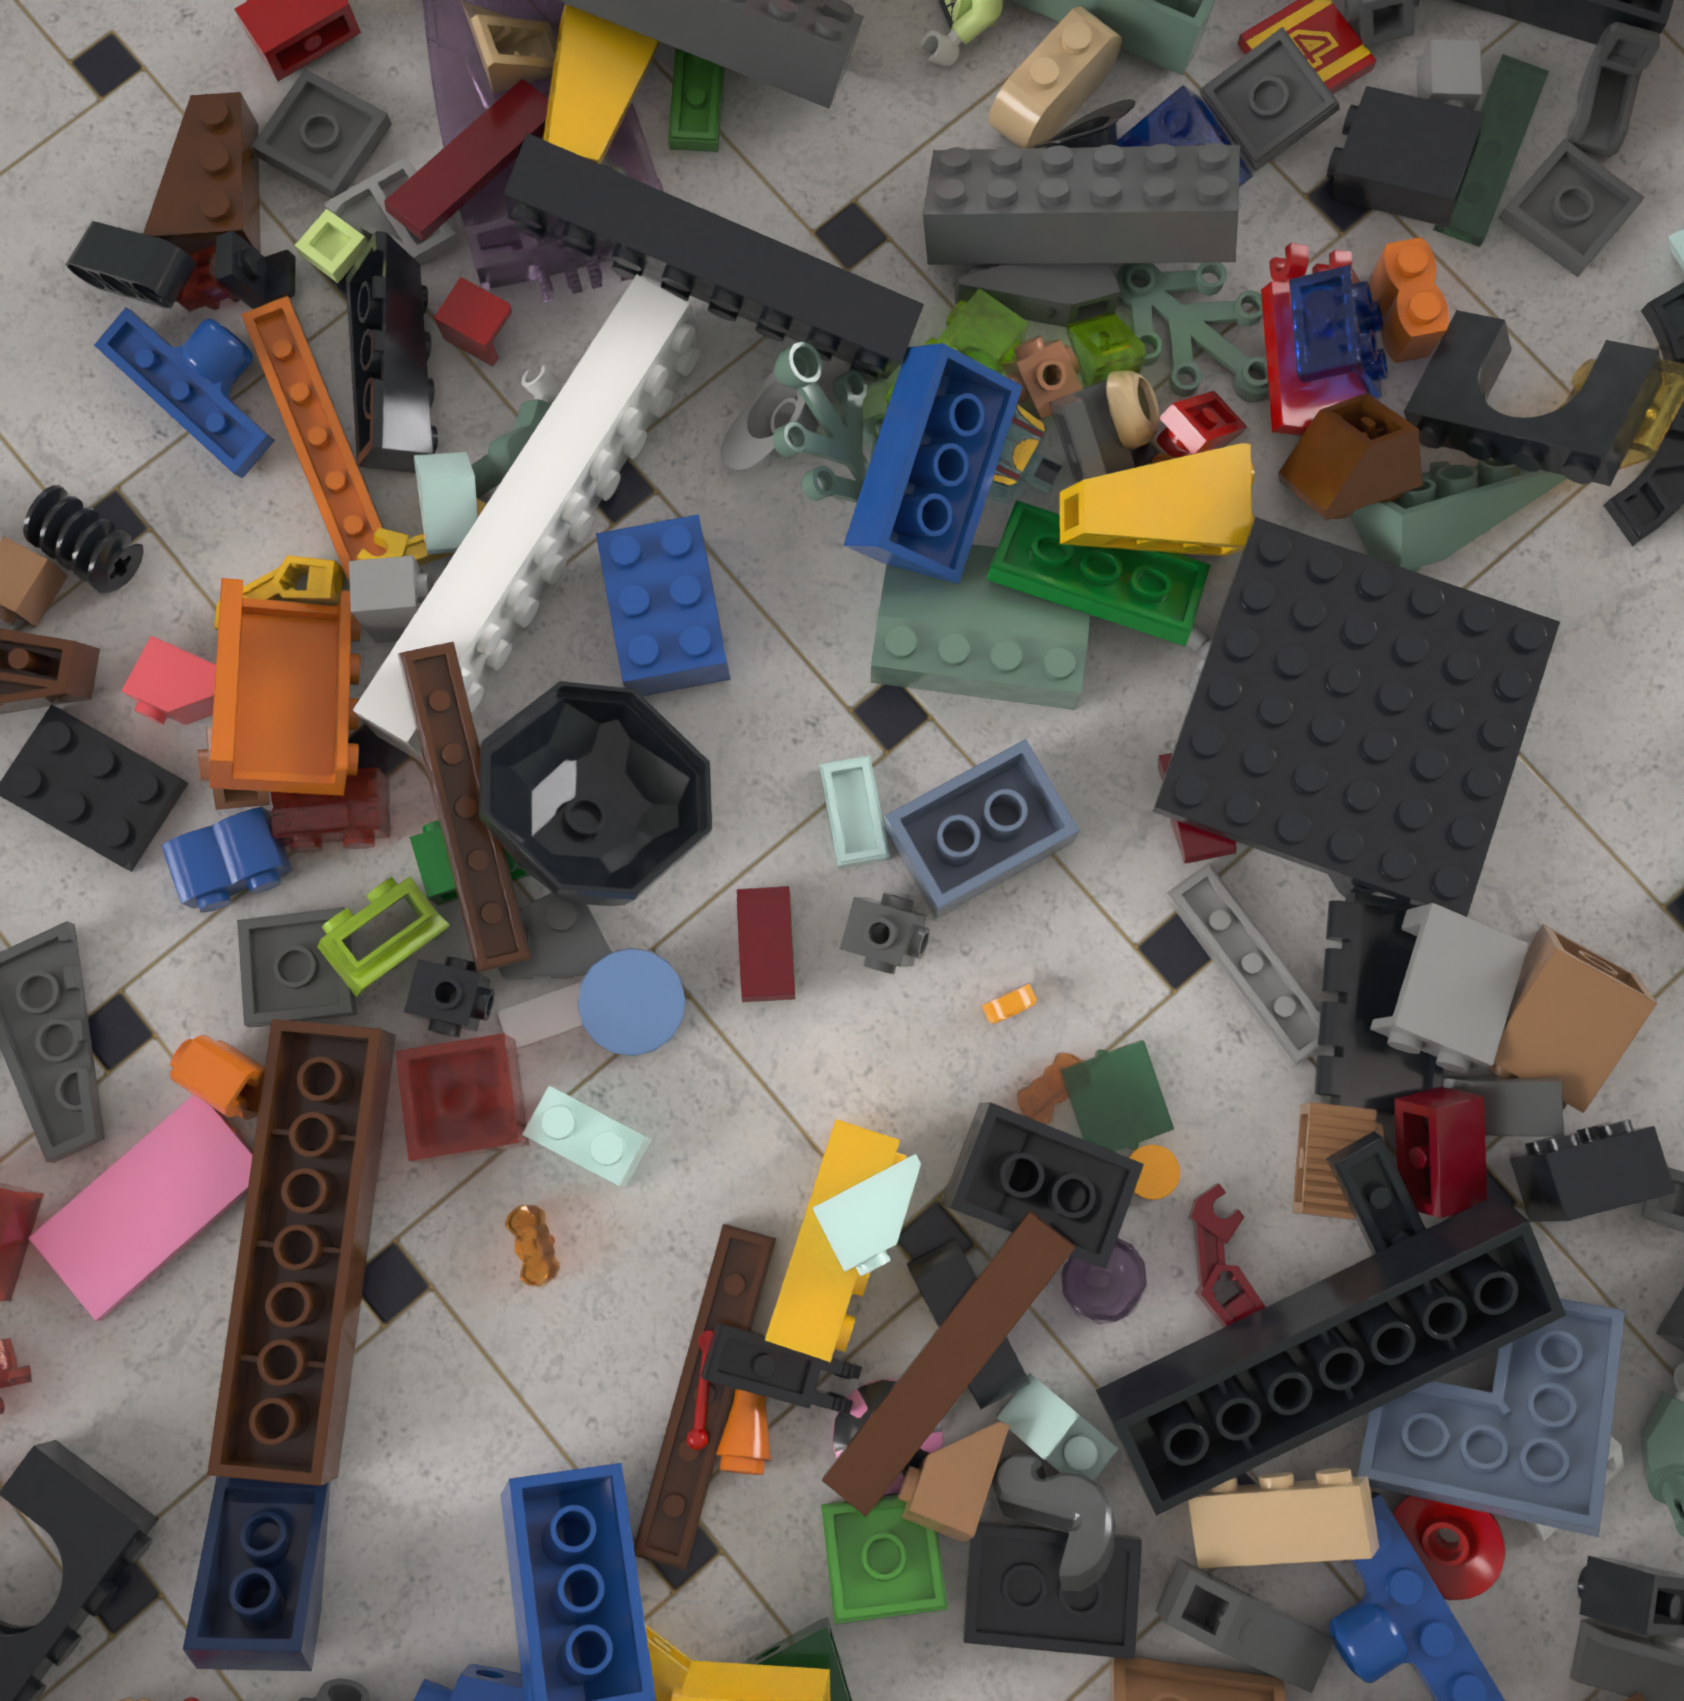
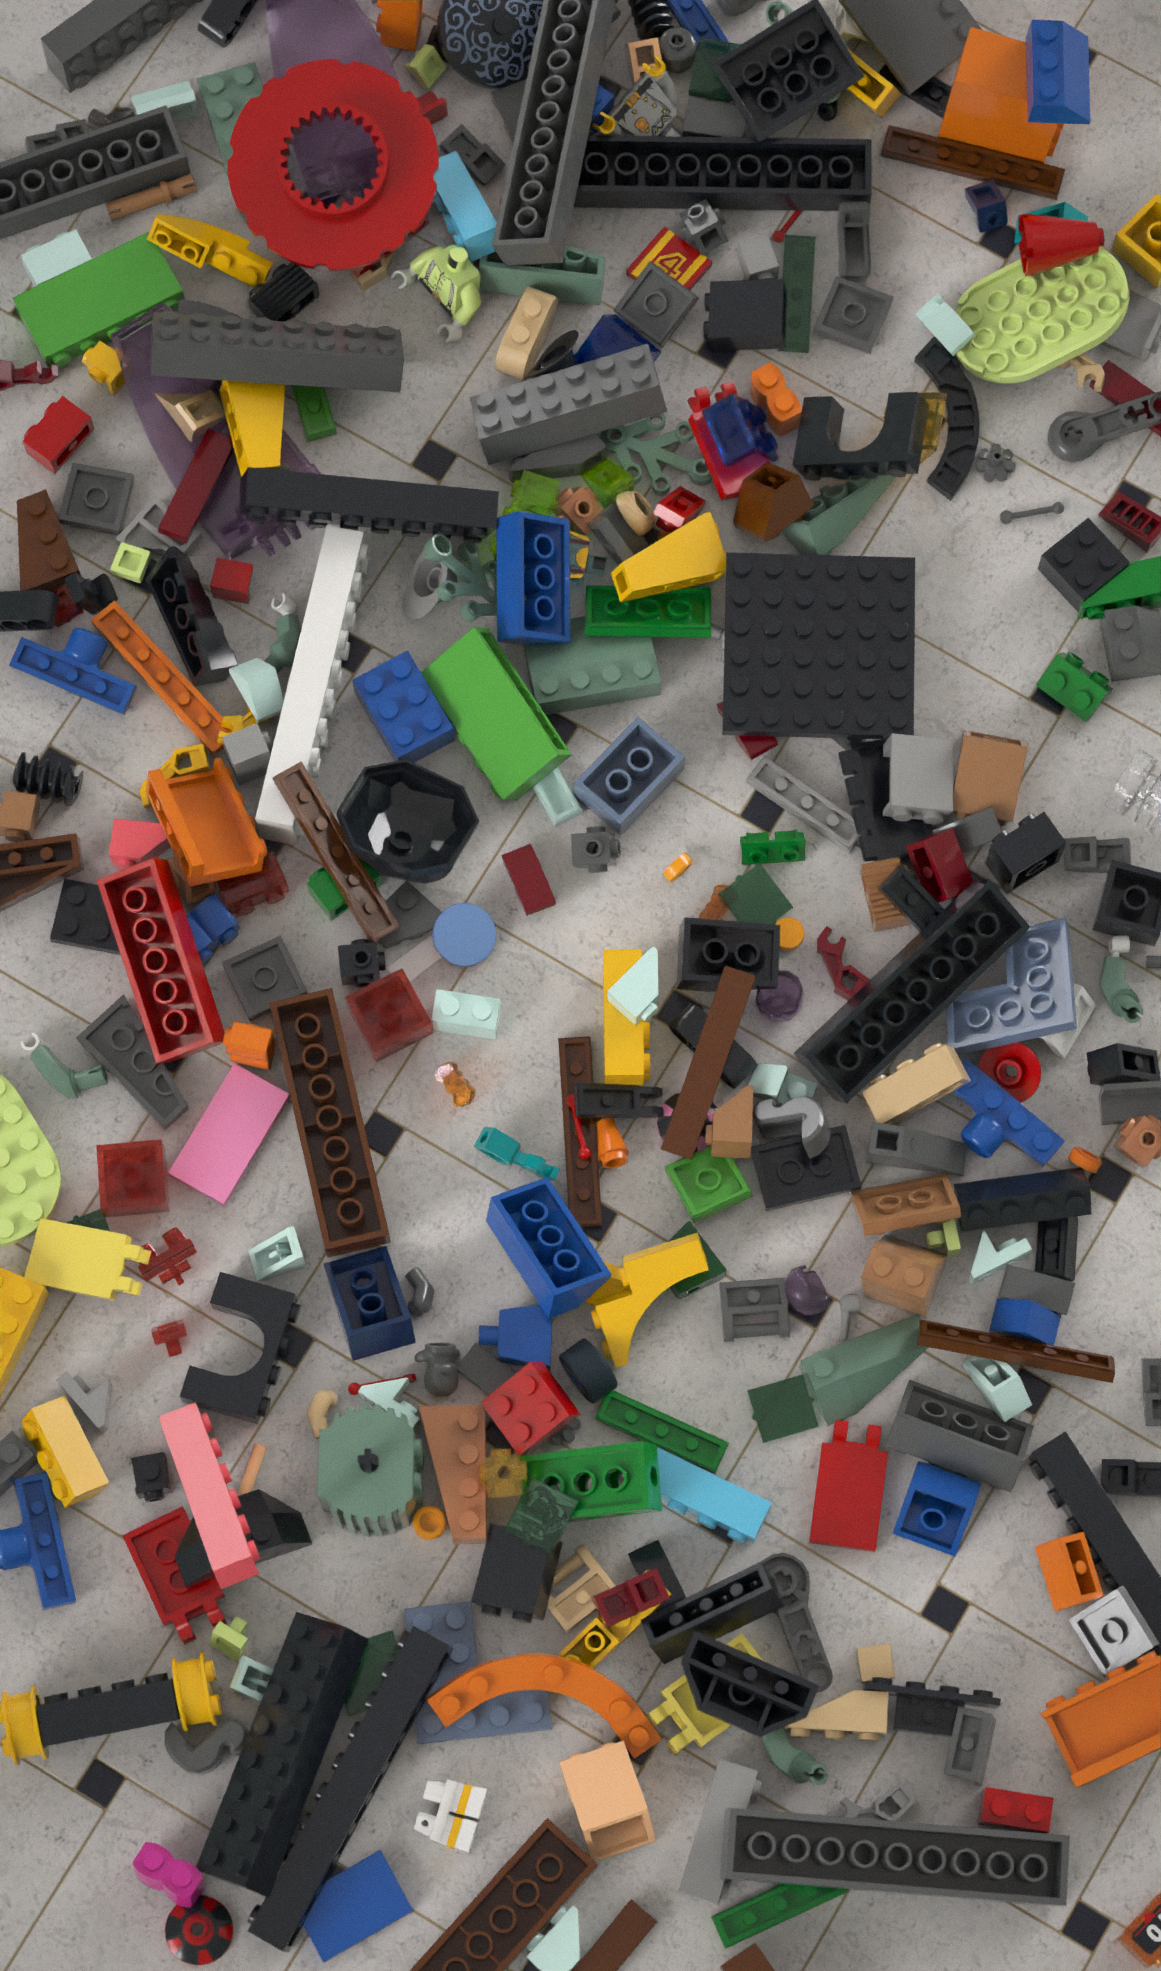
camera: 20 degrees left, 5 degrees down
(128, 892) = (161, 960): none -> red brick
(151, 1440) = (277, 1255): none -> light aqua slope
(357, 1584) = (423, 1292): none -> dark grey arm
(391, 953) = (296, 961): lime window -> none
(574, 1389) = (506, 1151): none -> teal piece
(801, 660) = (495, 714): none -> bright green brick
(1197, 1027) = (787, 847): none -> green hinge
(1491, 55) = (778, 236): none -> red hinge

